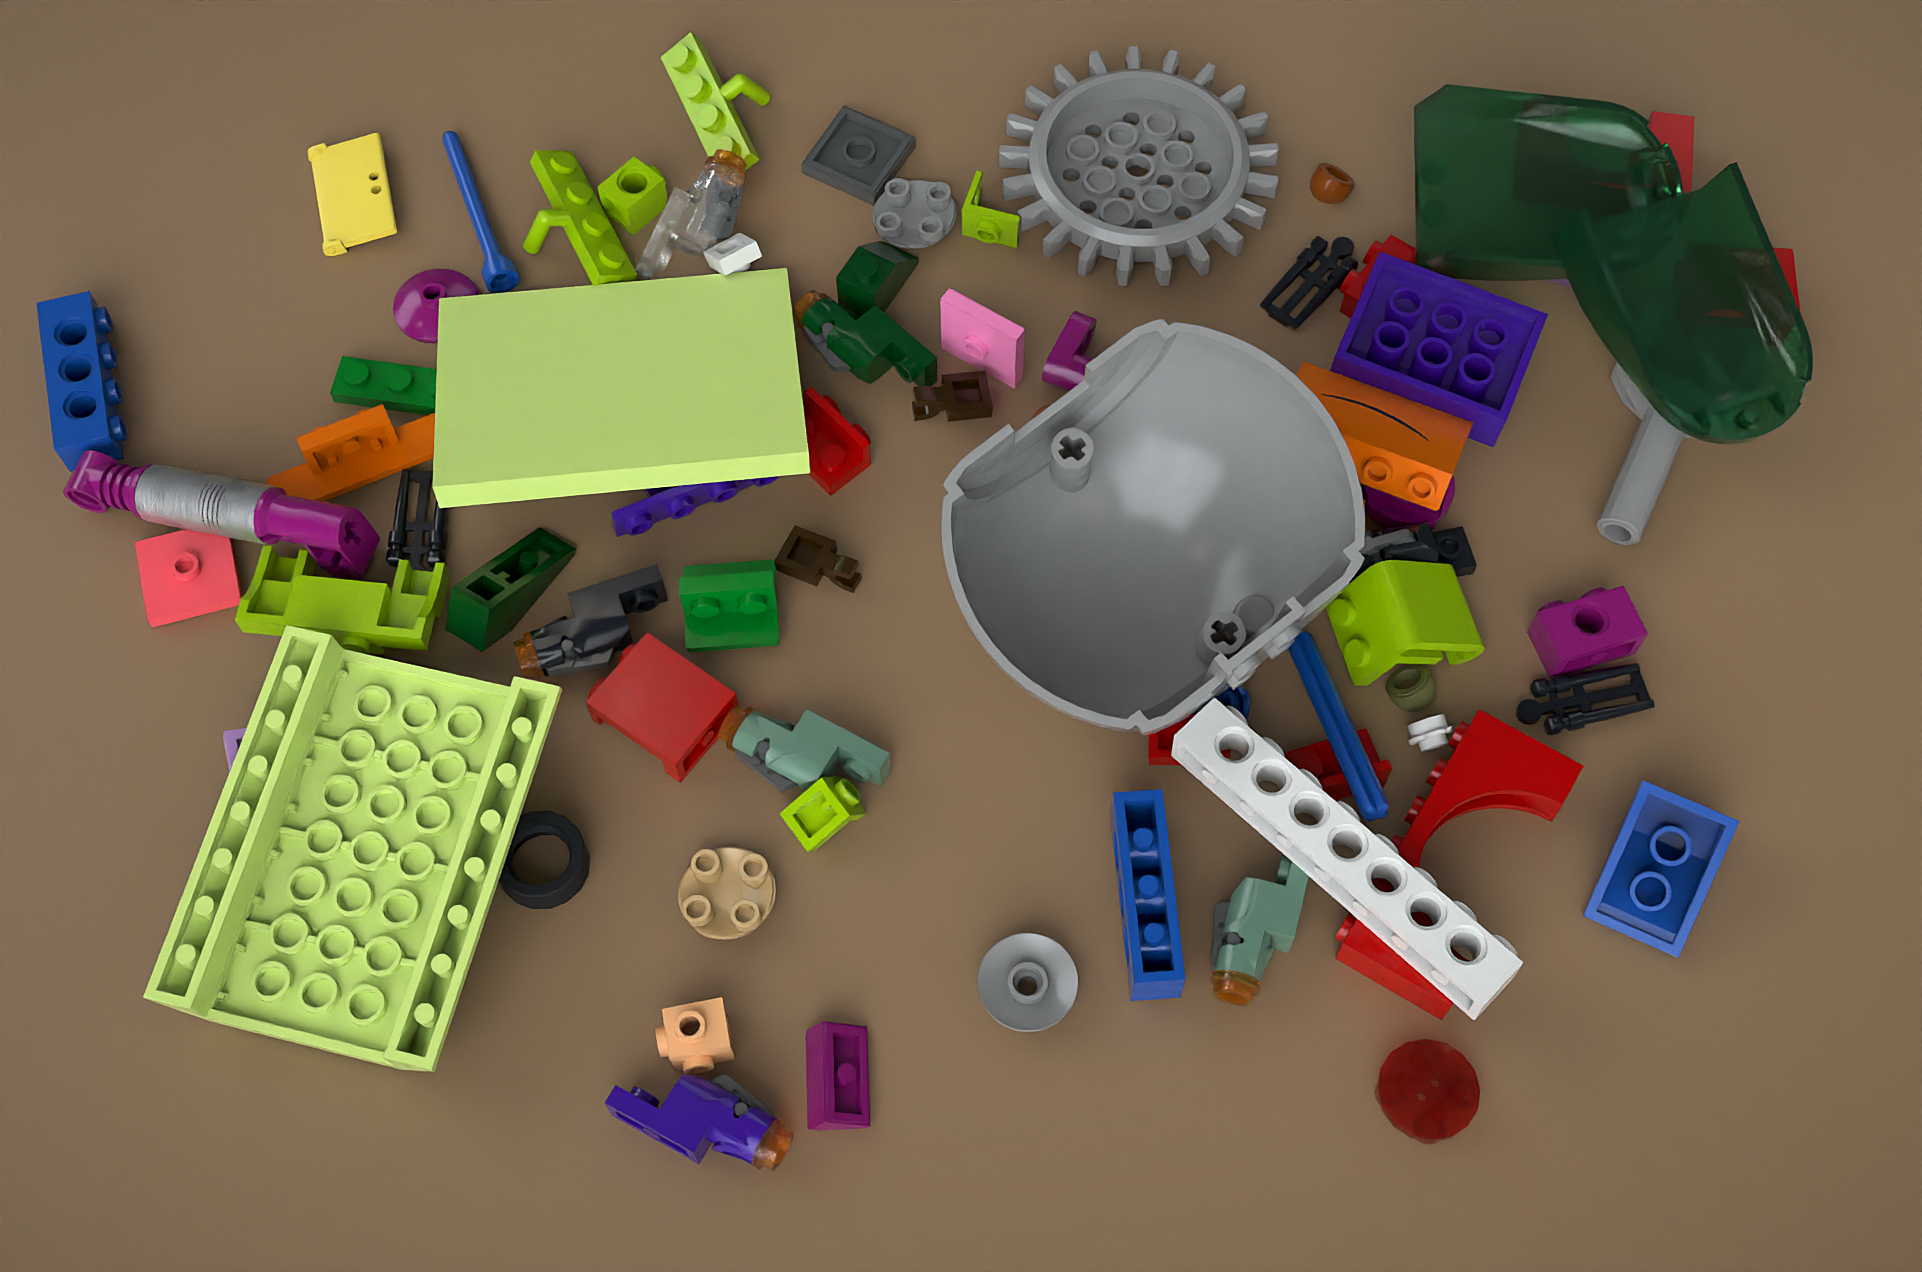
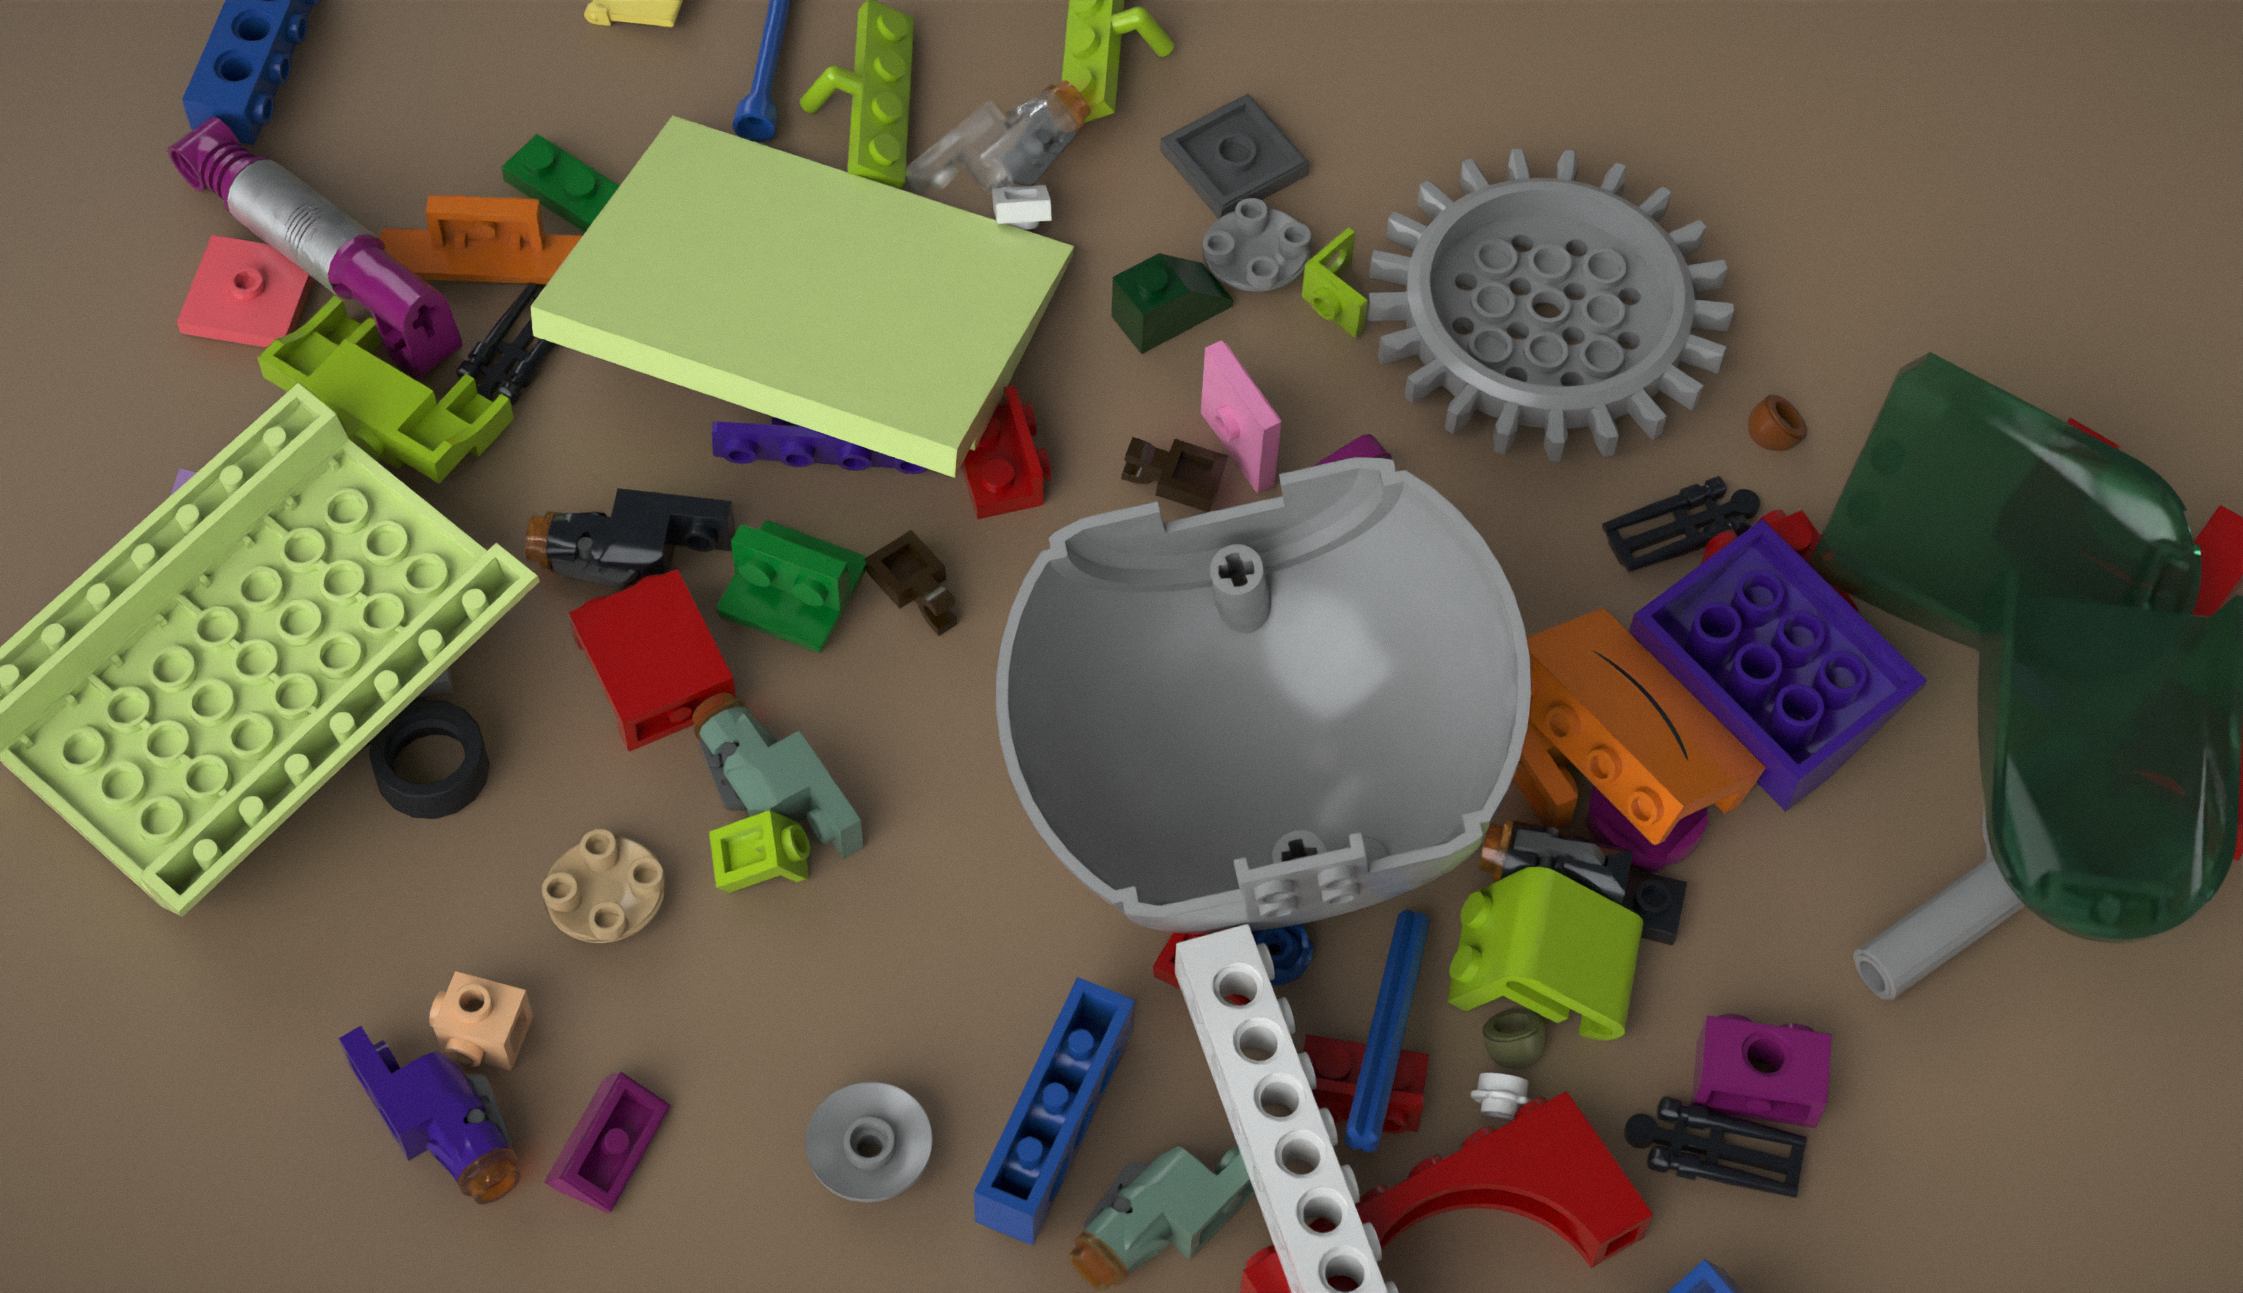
camera: 25 degrees right, 5 degrees down
(419, 315) = (654, 105): magenta dish -> none
(505, 588) = (556, 457): dark green slope -> none
(633, 195) = (949, 91): lime brick -> none
(863, 344) = (1108, 366): dark green plate -> none

